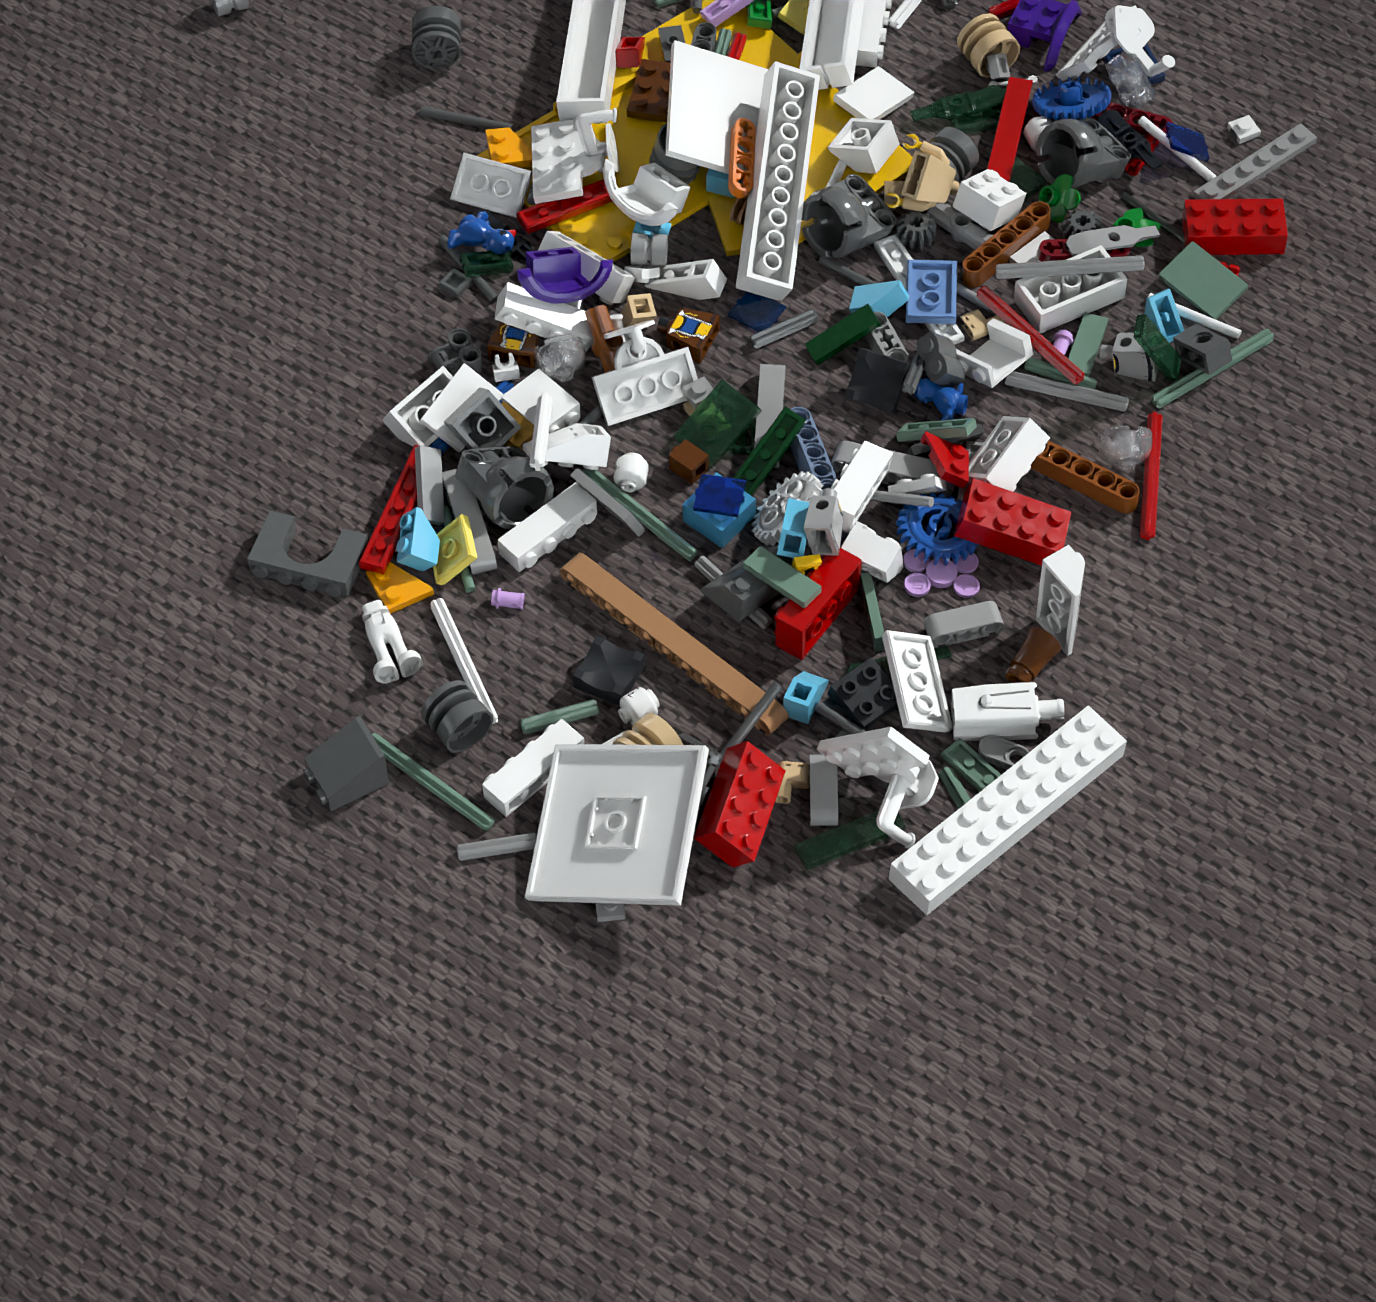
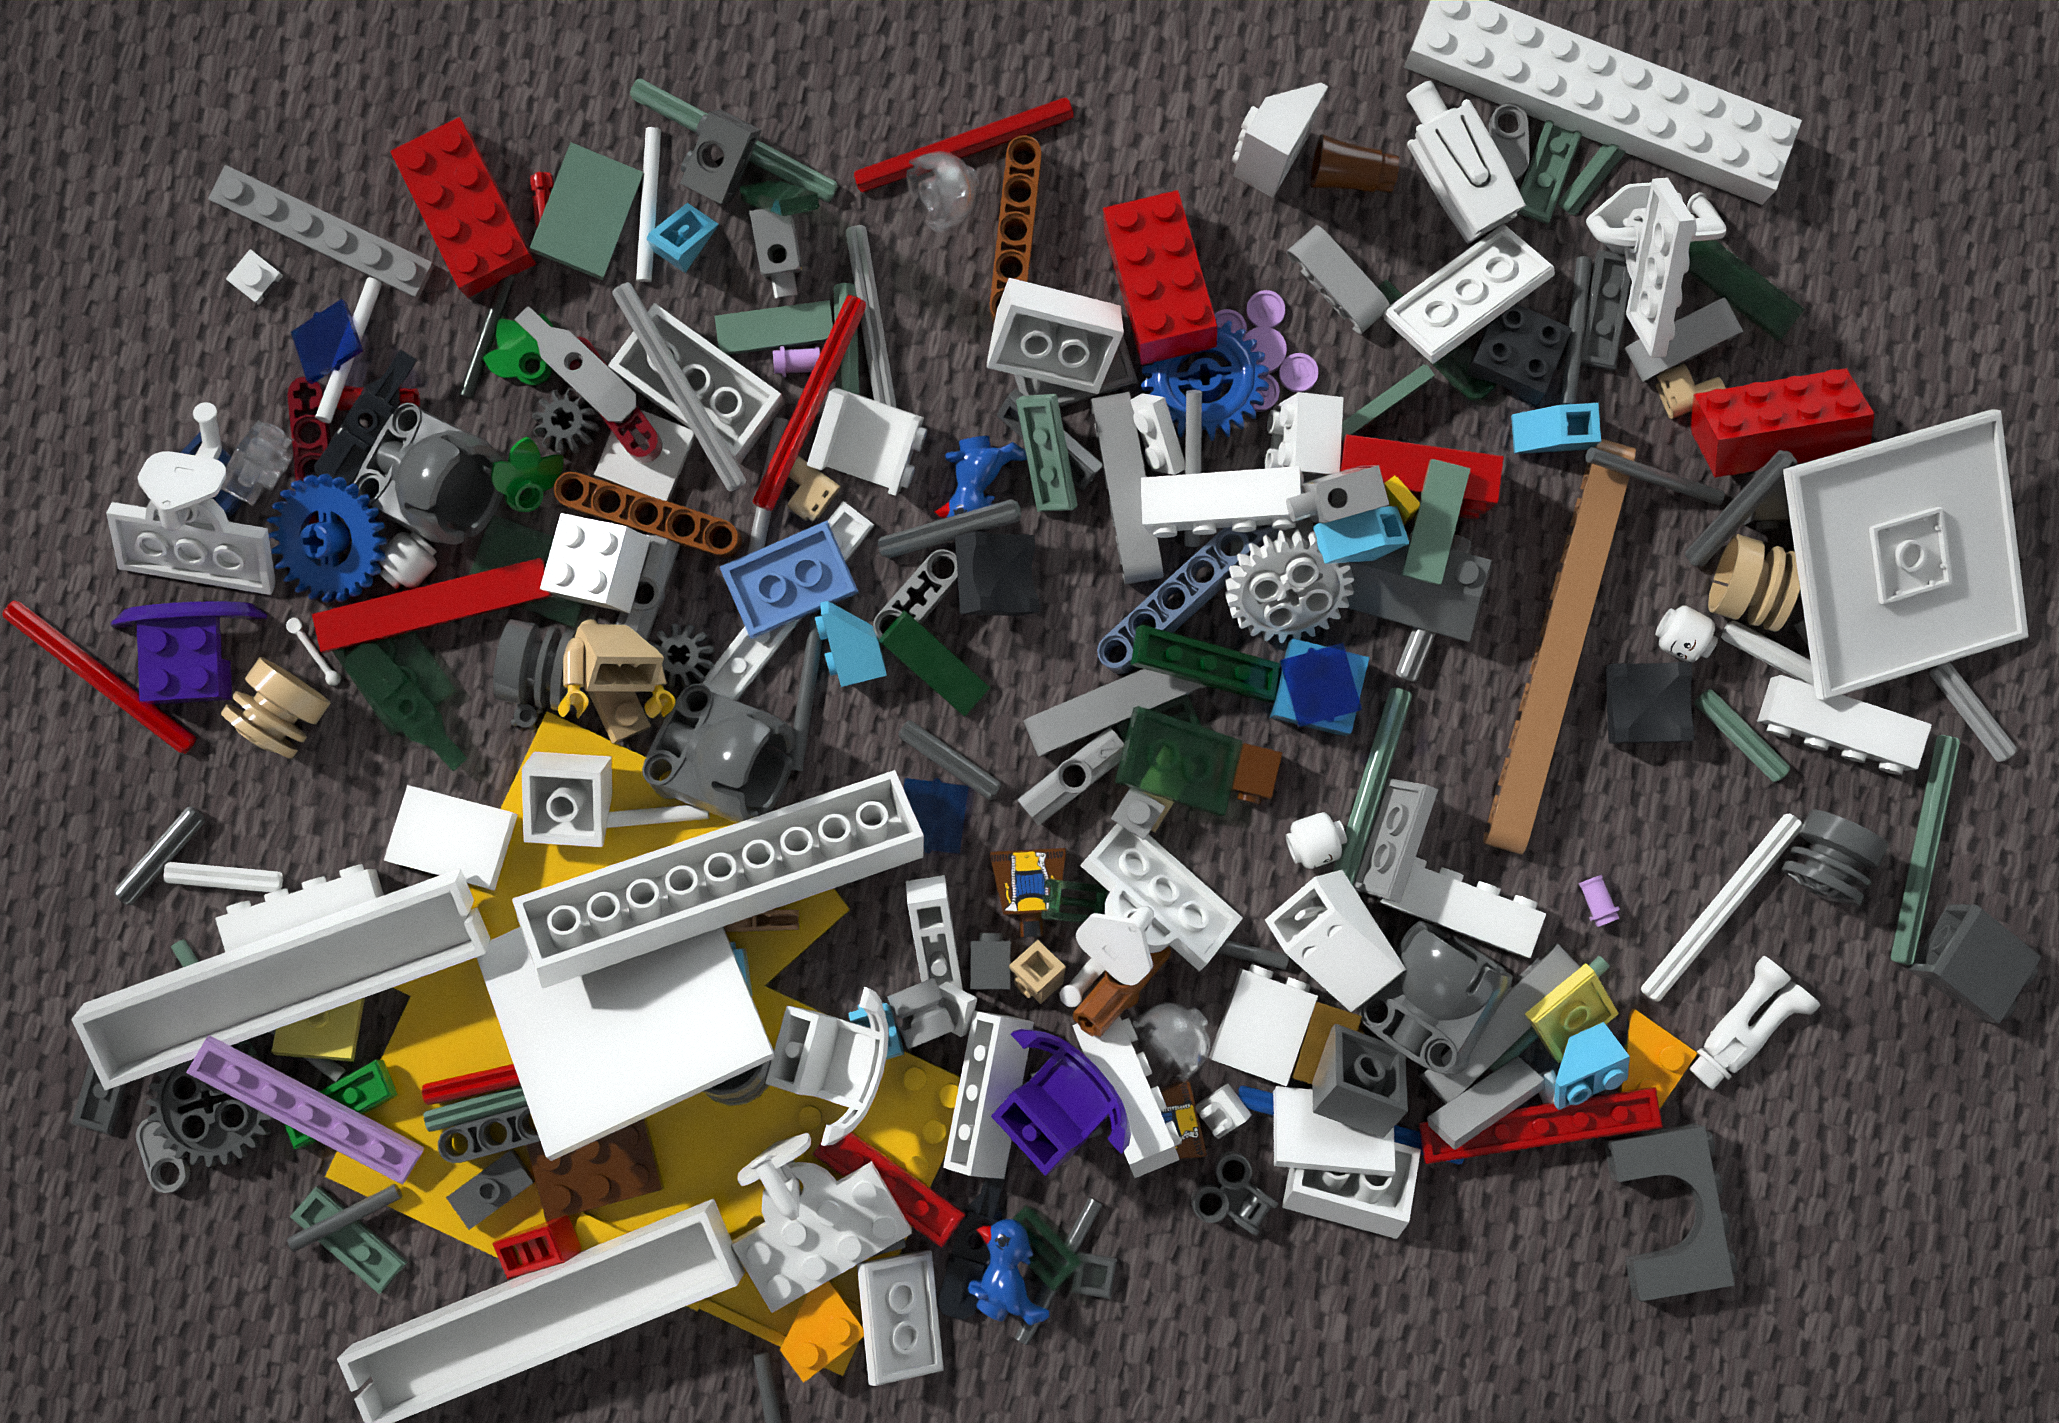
camera: 120 degrees left, 30 degrees up
(541, 431) = (1354, 979): white axle -> none
(662, 297) = (990, 962): none -> dark grey brick
(682, 328) = (1056, 899): none -> clear green tile
(738, 370) = (1052, 792): none -> light grey piece
(740, 157) = (709, 956): orange beam -> none
(940, 359) = (923, 500): dark grey brick -> none
(949, 458) = (1097, 408): red wing -> none
(998, 66) = (309, 676): light grey plate -> none

